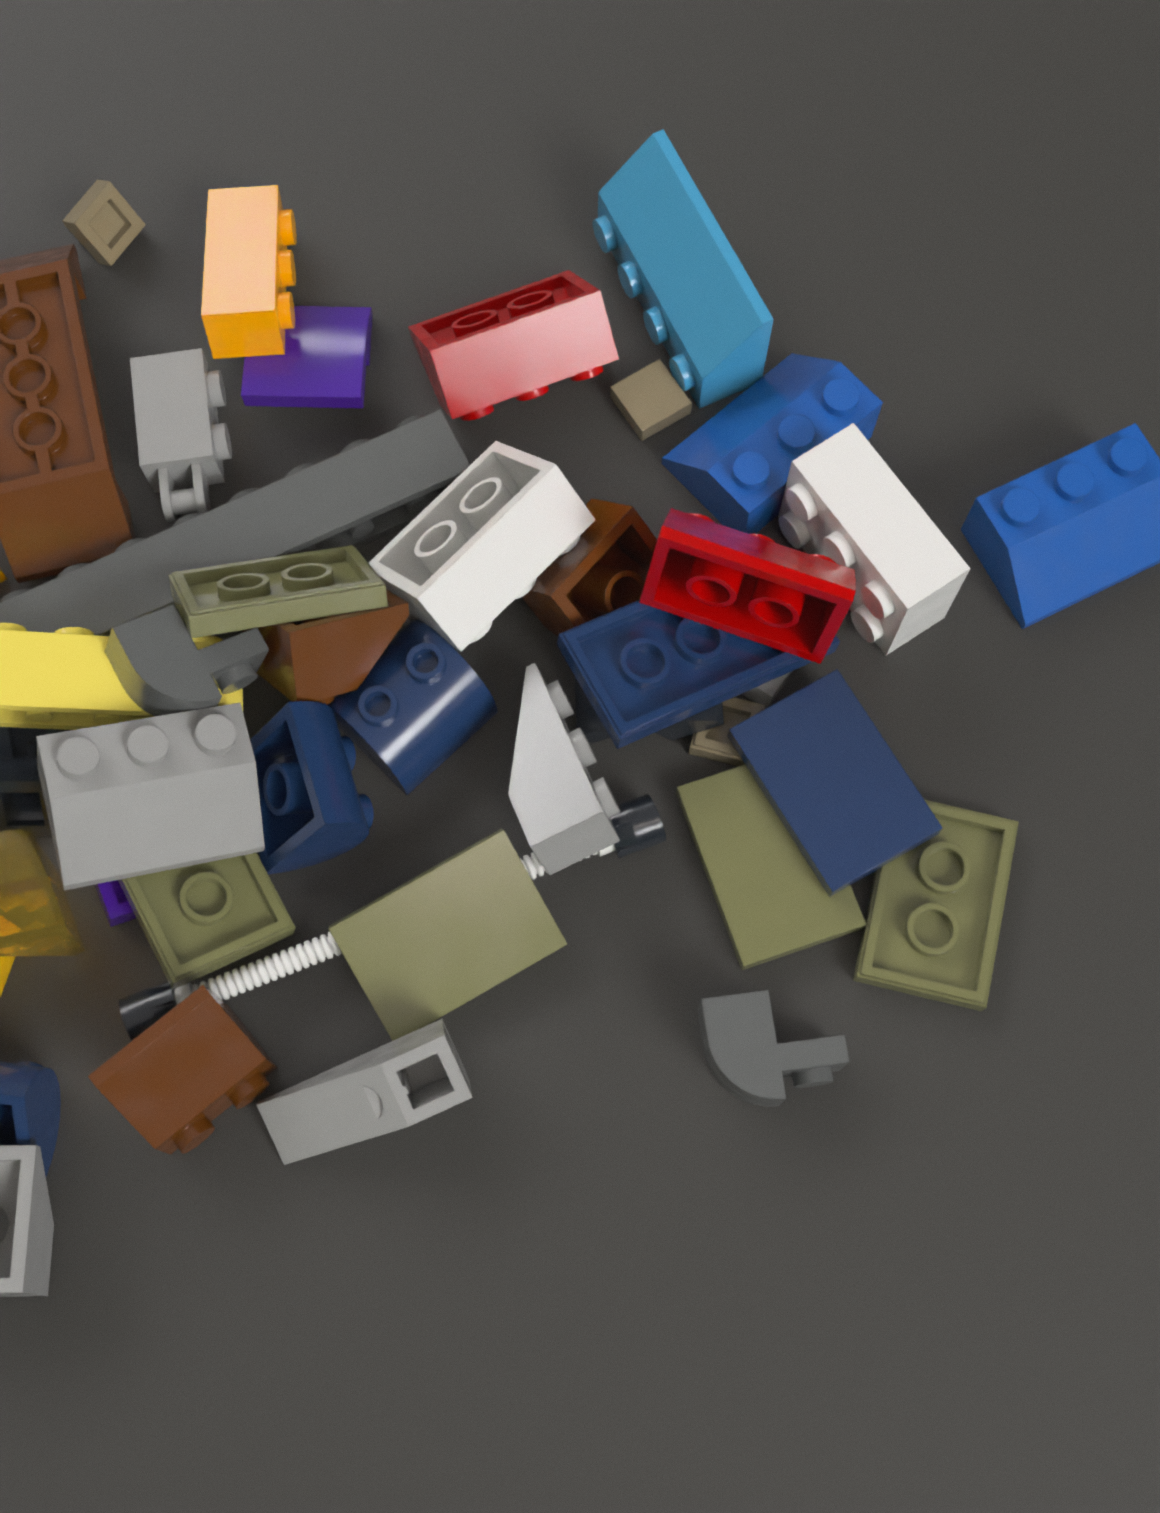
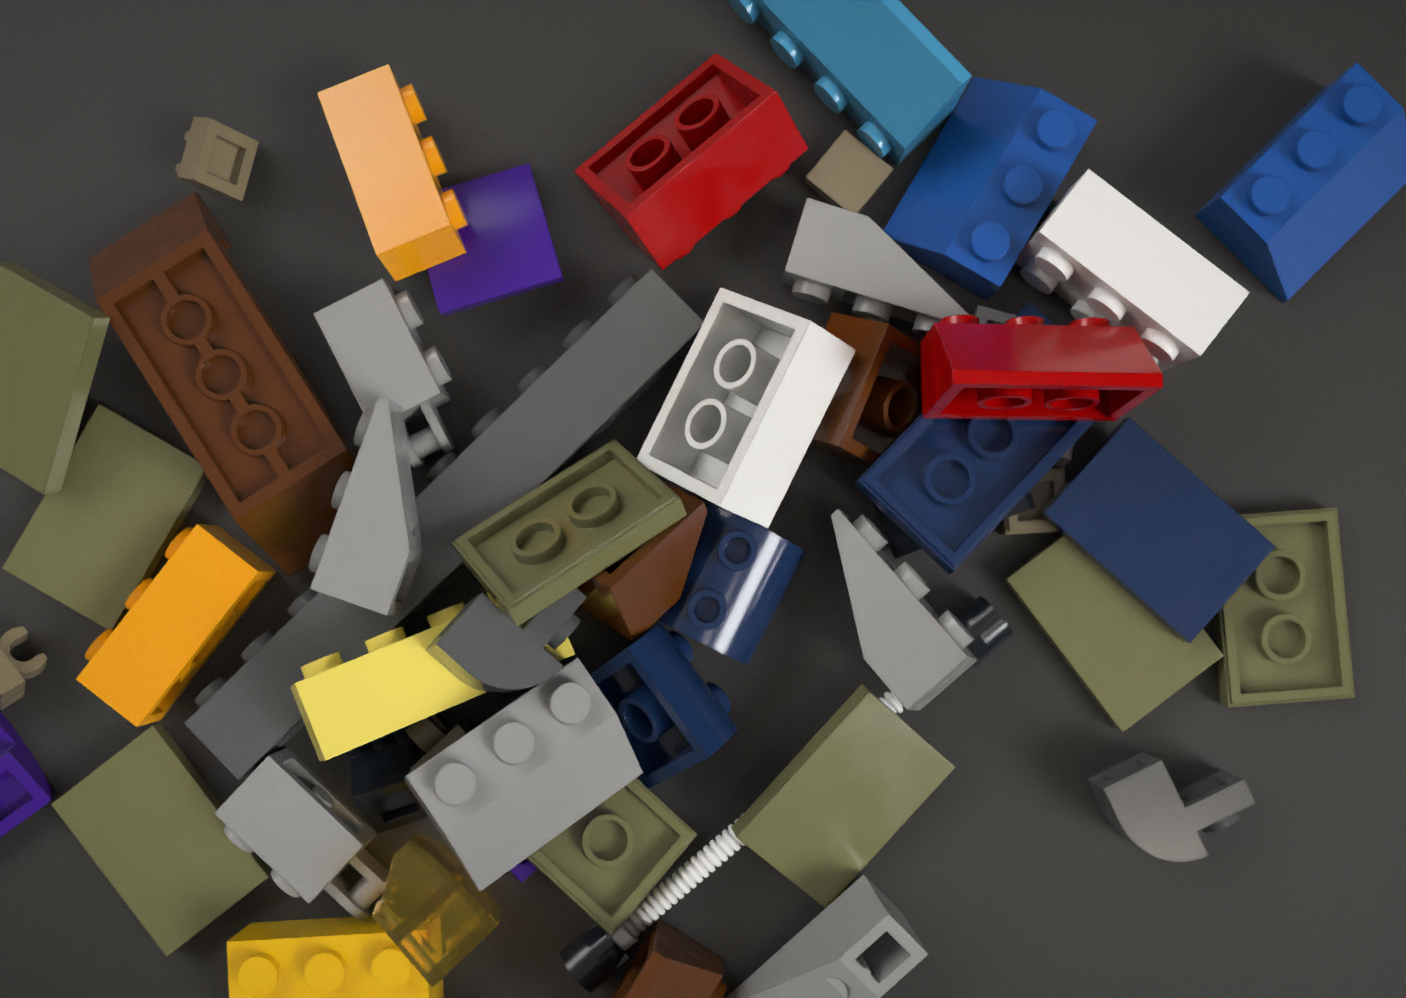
camera: 15 degrees left, 15 degrees up
(105, 539) = (376, 528): none -> light grey slope
(625, 463) = (857, 263): none -> light grey slope

